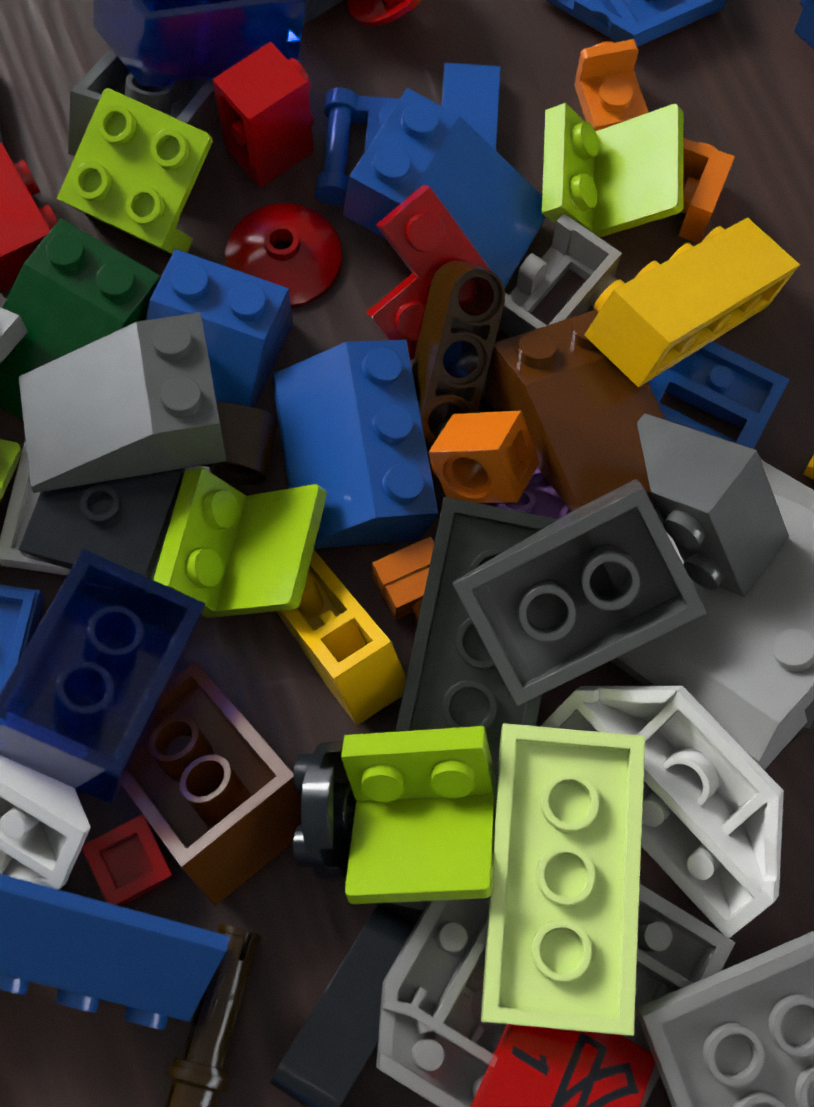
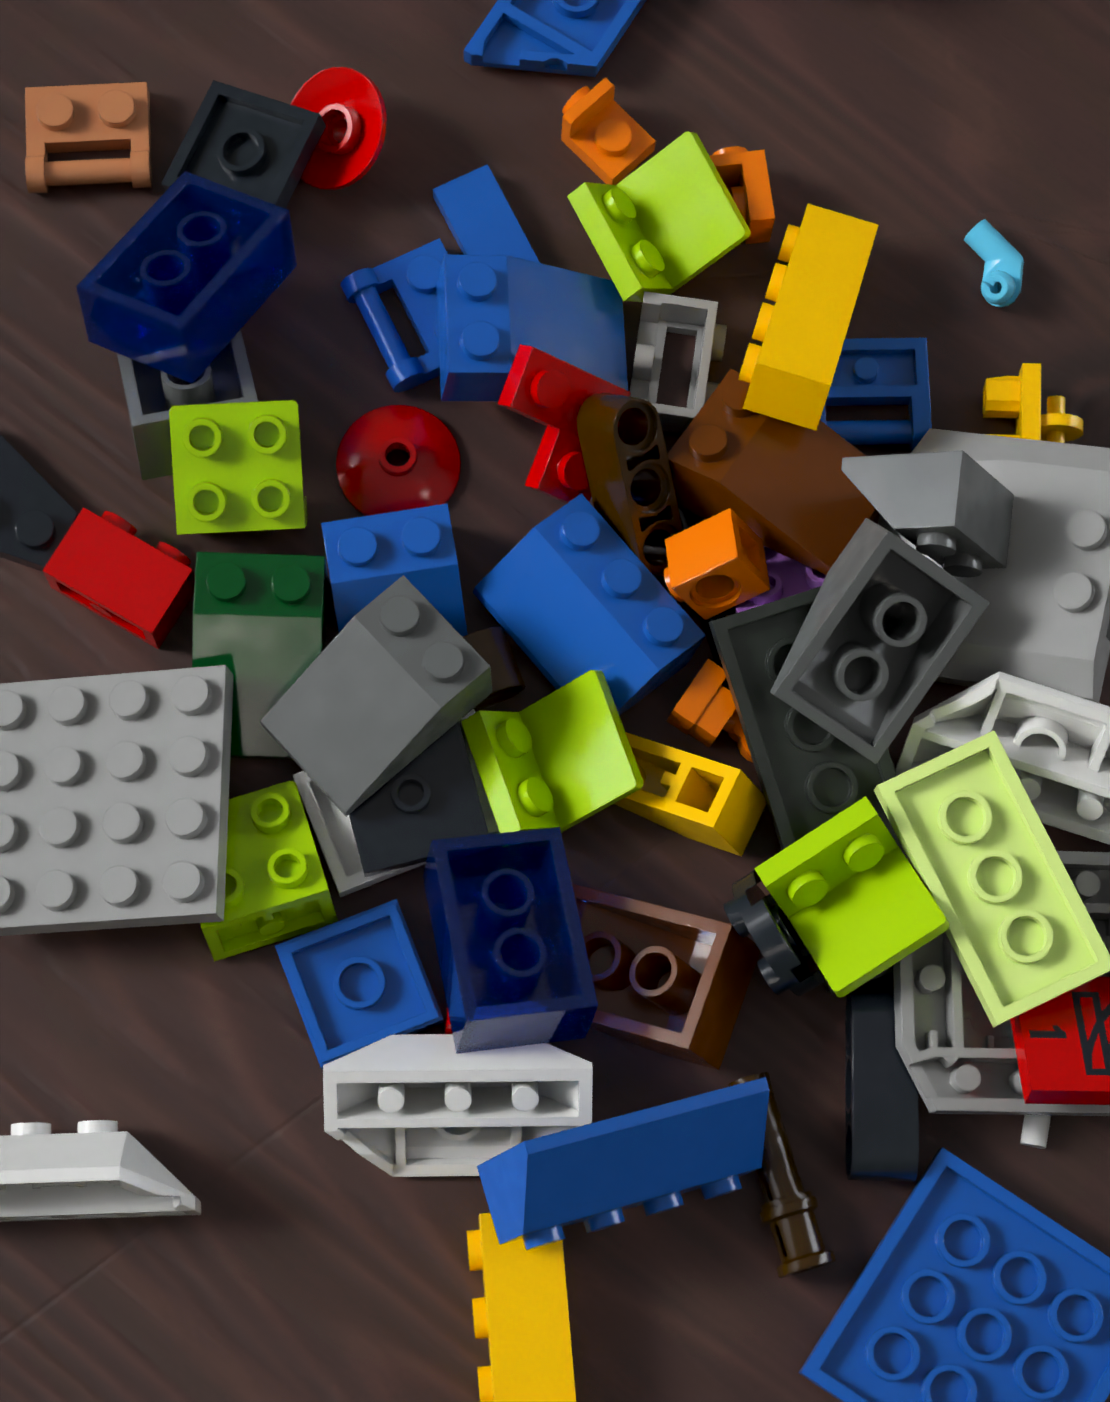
camera: 35 degrees left, 5 degrees up
(128, 861) = (624, 1076): red plate -> none
(265, 113) = (313, 342): red brick -> none

